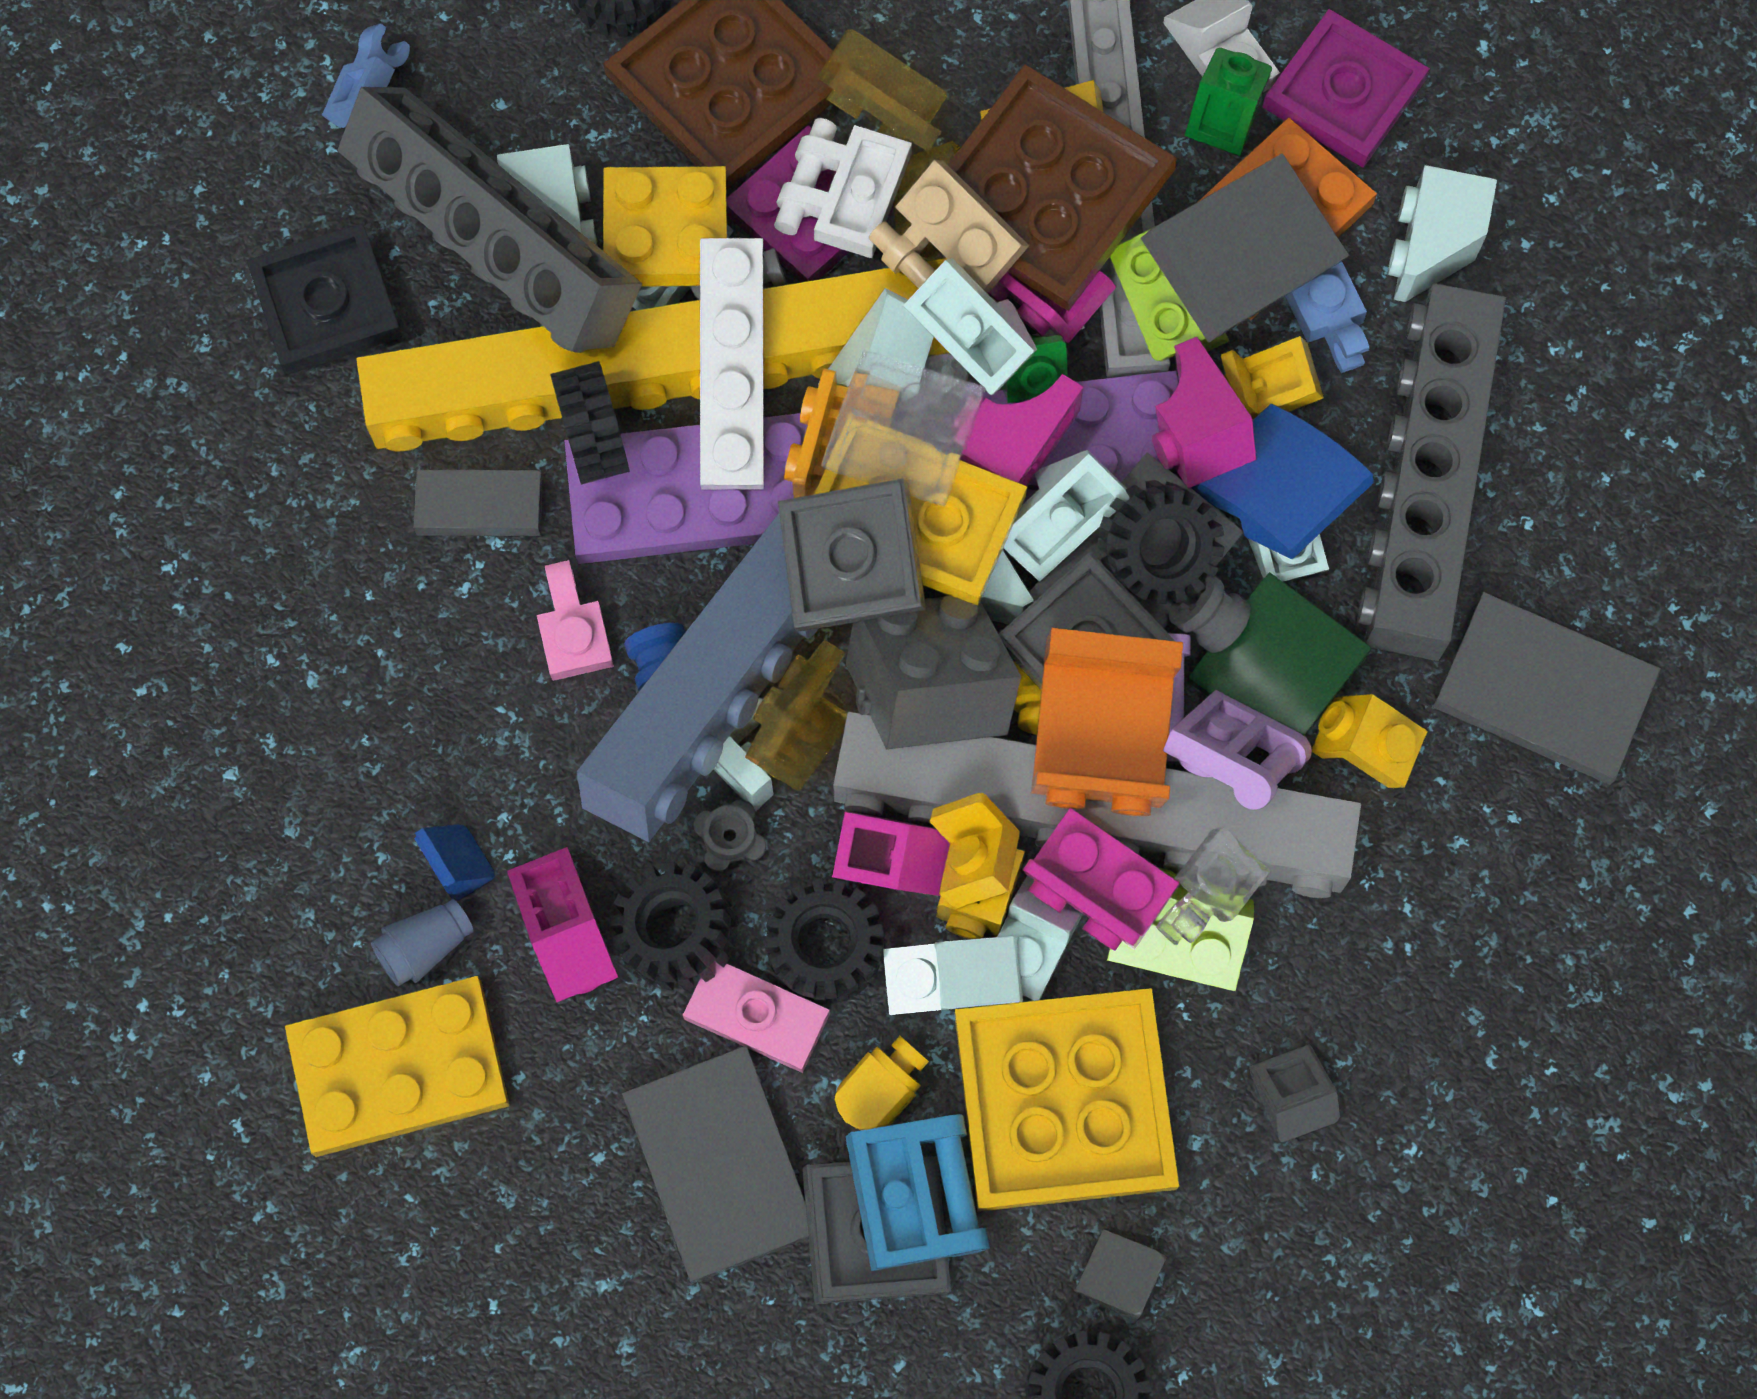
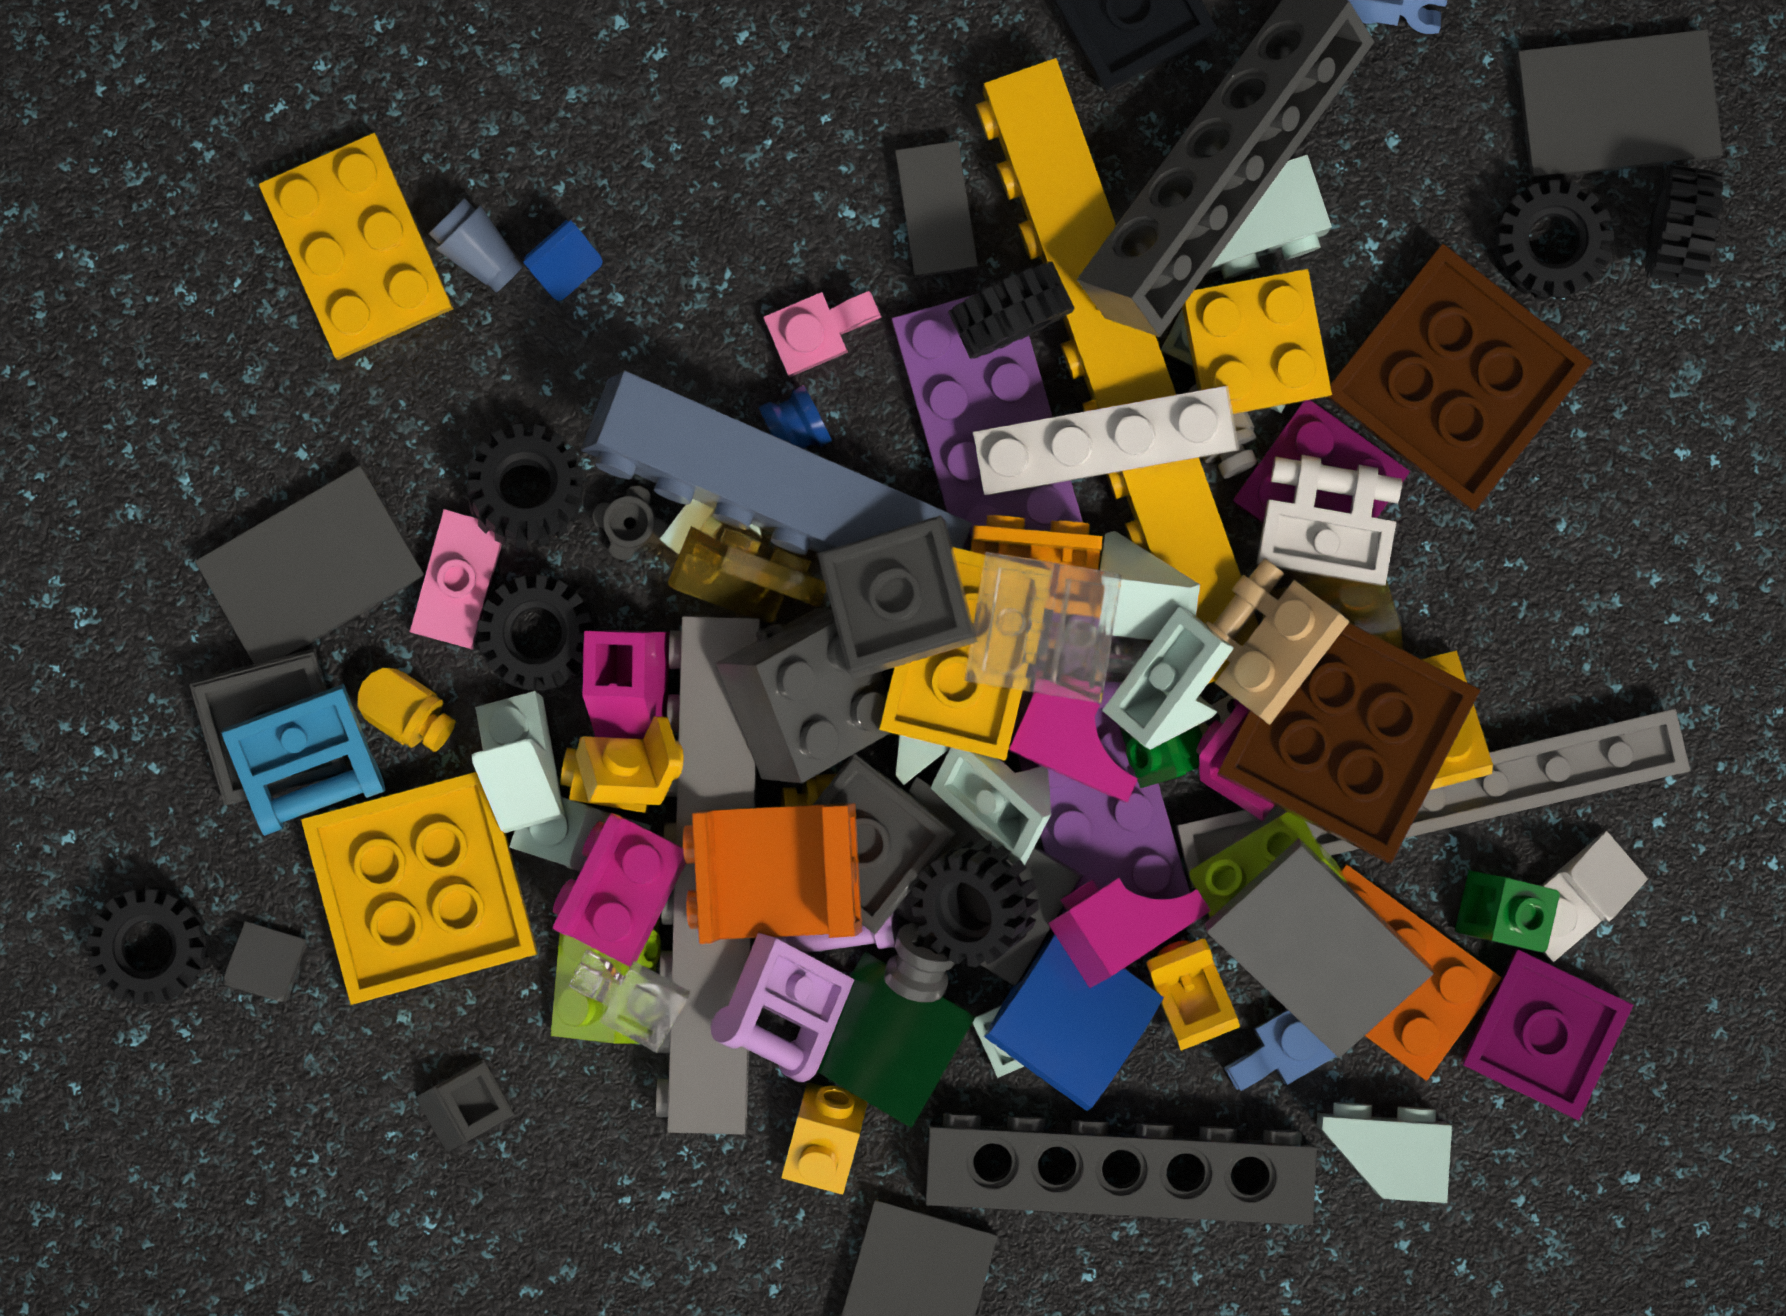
camera: 80 degrees right, 15 degrees up
(561, 925) = (511, 376): dark pink arch -> none
(883, 86) = (1445, 544): clear yellow bracket -> none

